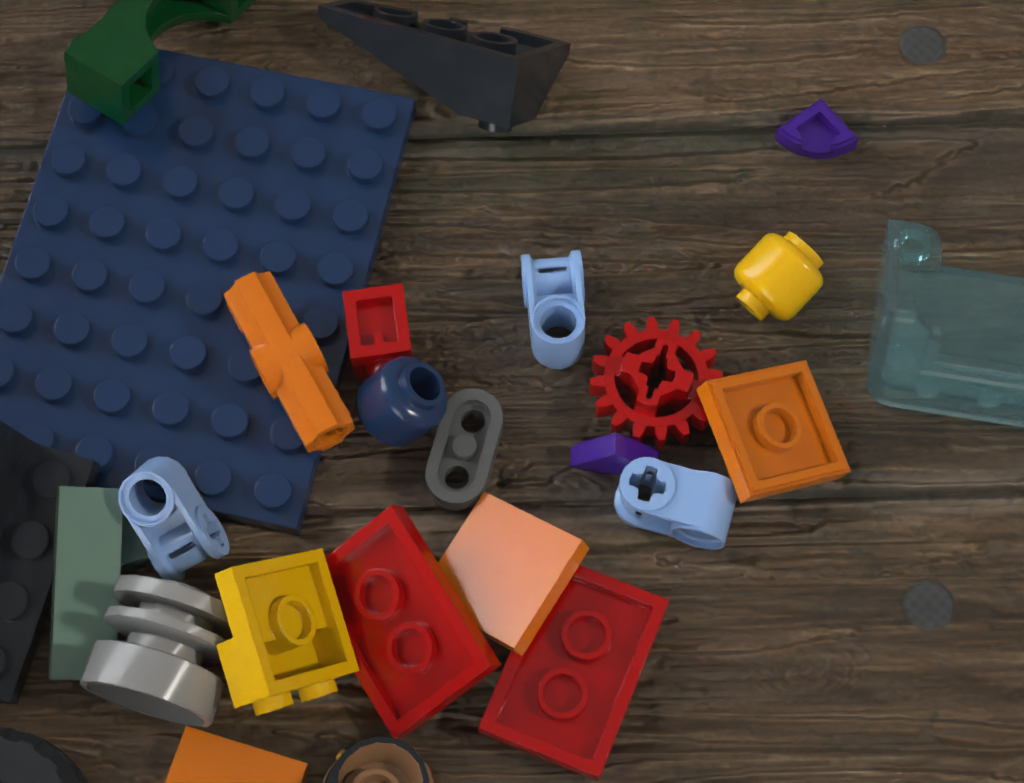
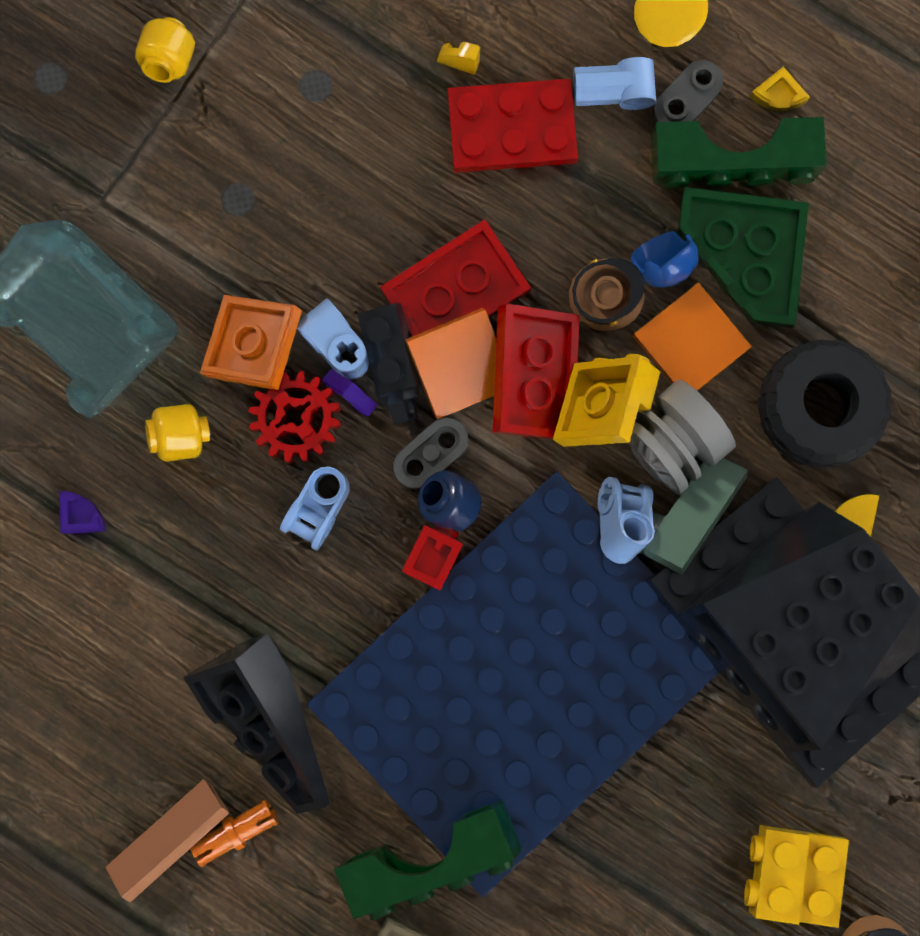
camera: 150 degrees left, 15 degrees up
(289, 361) = (500, 565): orange piece -> none
(617, 542) = (390, 360): none -> black hinge

